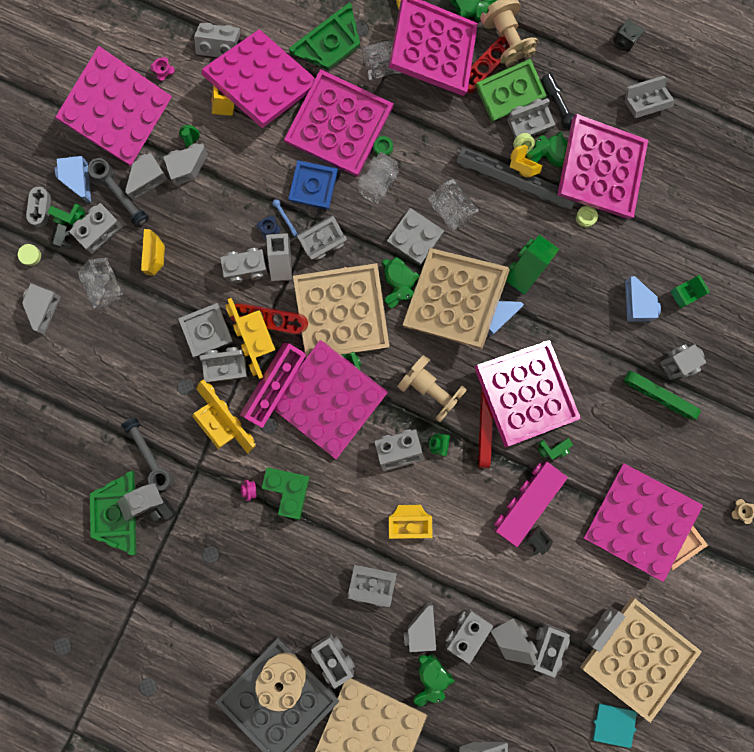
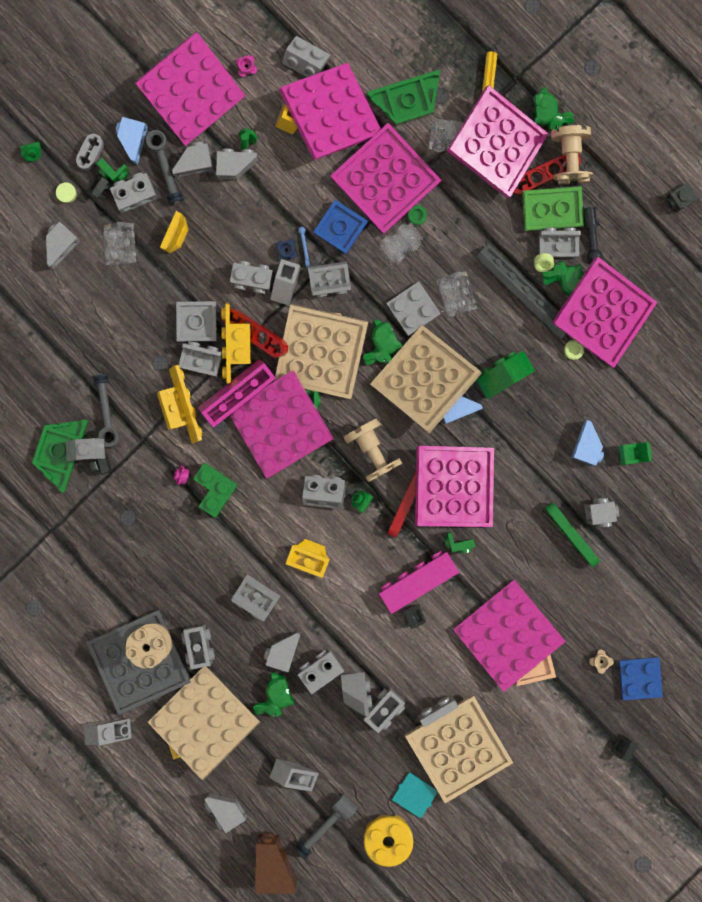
camera: 30 degrees right, 5 degrees up
(525, 166) = (535, 282): yellow bracket -> none
(648, 97) = (674, 263): light grey bracket -> none

